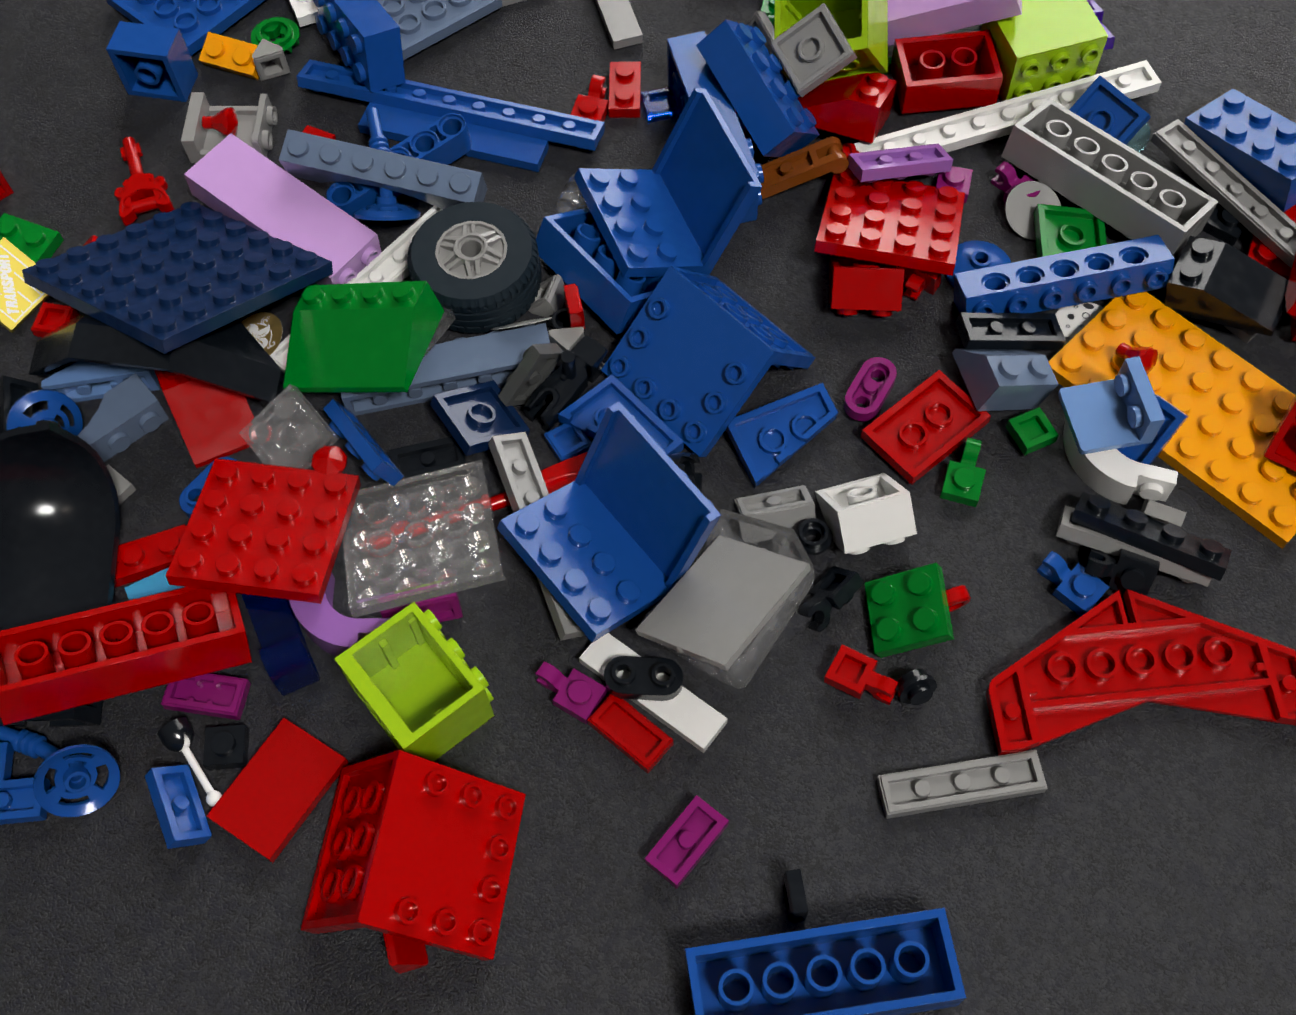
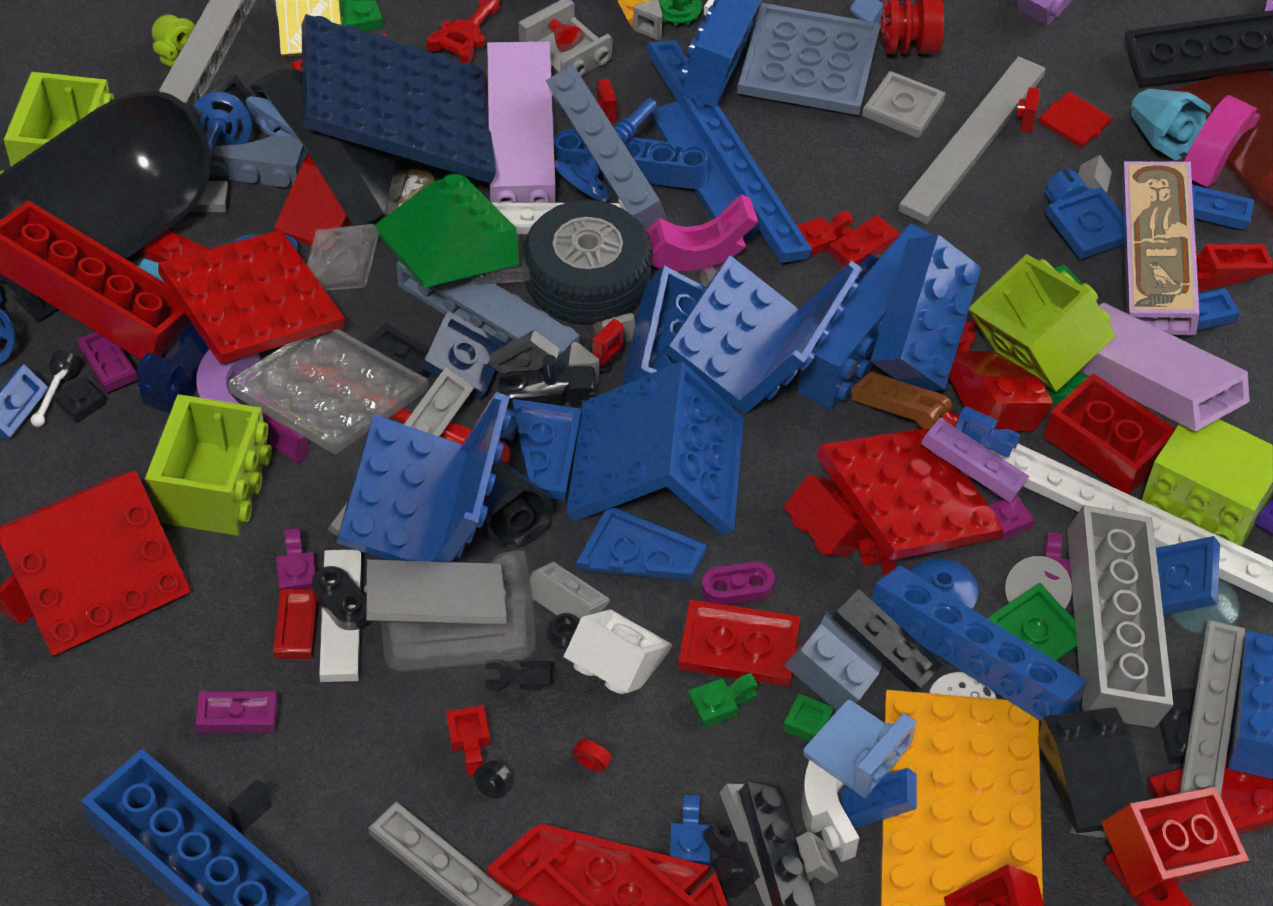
camera: 45 degrees right, 10 degrees down
(277, 789) = (73, 449): red tile -> none
(329, 460) = (341, 294): red rock -> none
(362, 444) = (373, 302): blue plate -> none
(522, 323) = (567, 323): white sticker -> none
(535, 173) = (703, 244): none -> dark pink arch
(813, 50) = (995, 317): light grey tile -> none
(887, 136) = (982, 429): none -> blue plate
(908, 610) = (552, 730): green plate -> none
(1147, 355) = (944, 747): red rock -> none

